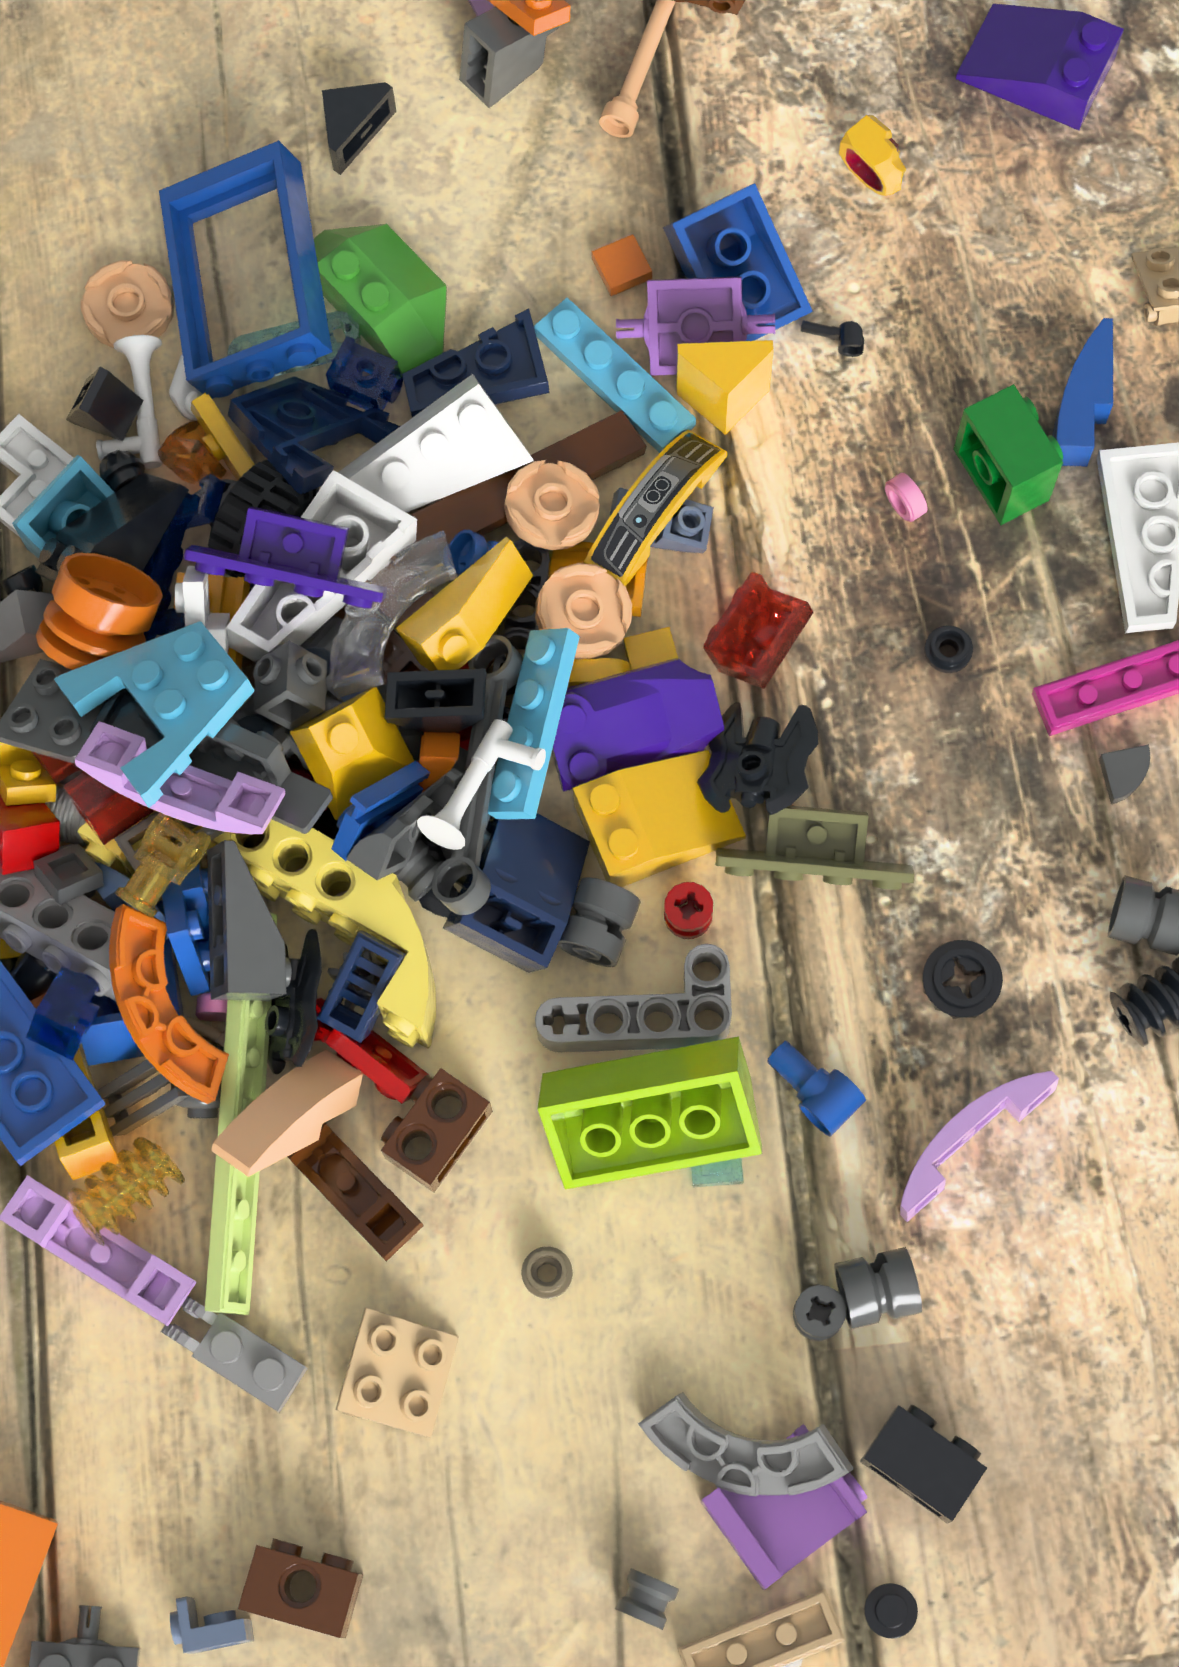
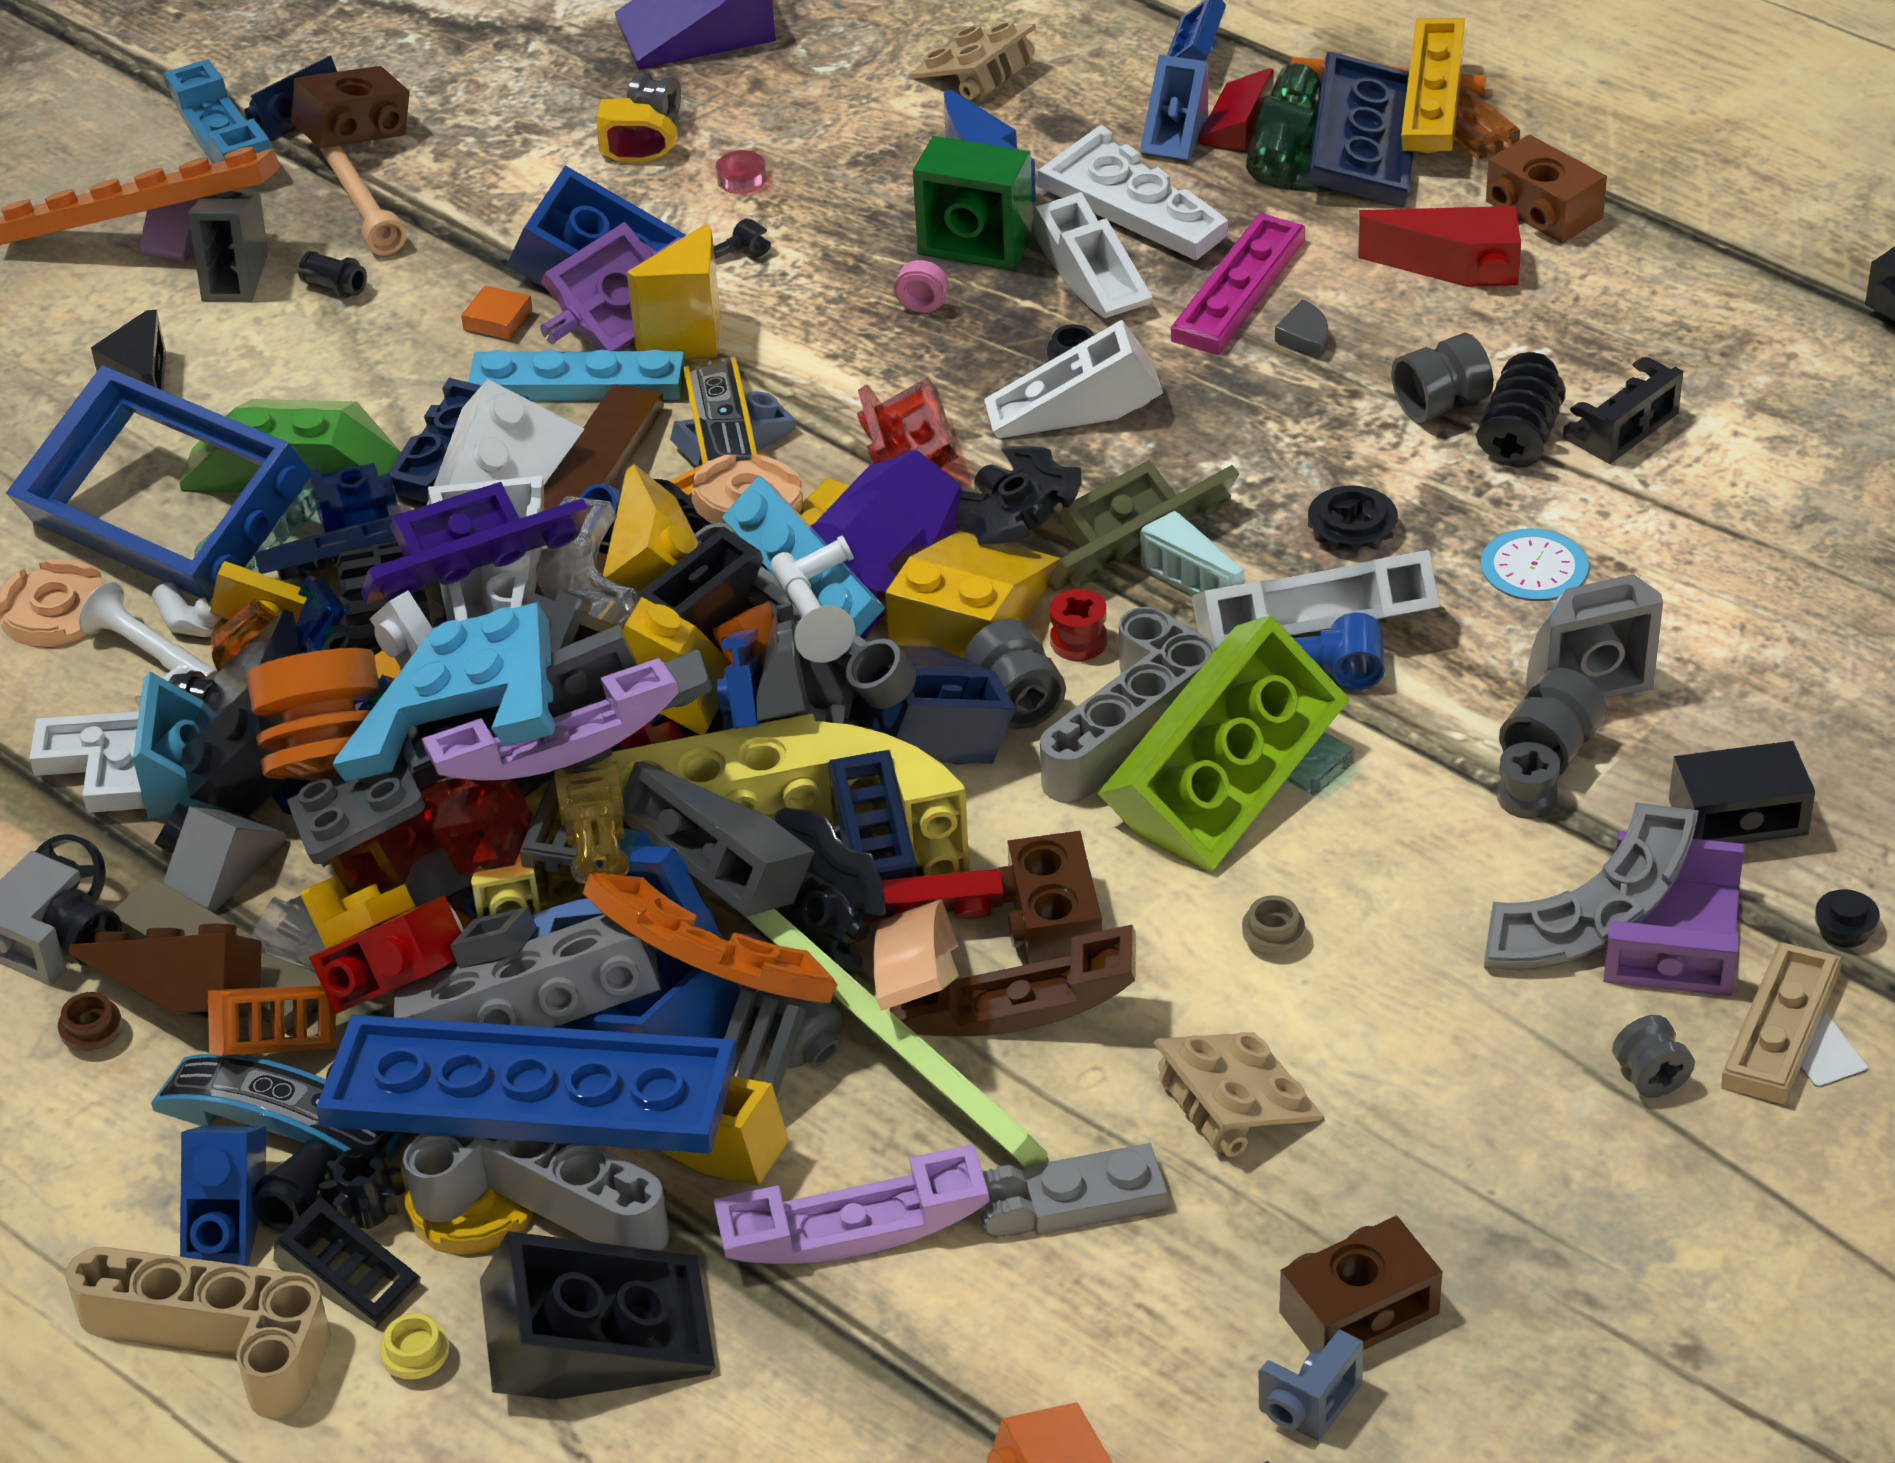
camera: 45 degrees left, 30 degrees down
(65, 1013) = (625, 997): clear blue brick -> none
(105, 405) = (114, 655): black slope -> none
(123, 1187) = (822, 1135): clear yellow piece -> none
(552, 505) = (634, 441): light nougat tile -> none
(555, 142) = (342, 276): none -> black pin
(794, 1012) = (1316, 599): none -> white arch
(810, 911) = (1186, 557): none -> light aqua slope
(904, 694) = (1078, 388): none -> white slope
(913, 259) = (741, 172): none -> clear pink tile
(918, 134) = (661, 95): none -> dark grey wheel
(966, 1257) = (1604, 633): none -> light grey slope
(1017, 1097) = (1491, 629): lavender slope -> none
(1046, 573) = (1089, 256): none -> white slope
(1049, 1136) = (1534, 563): none -> sticker

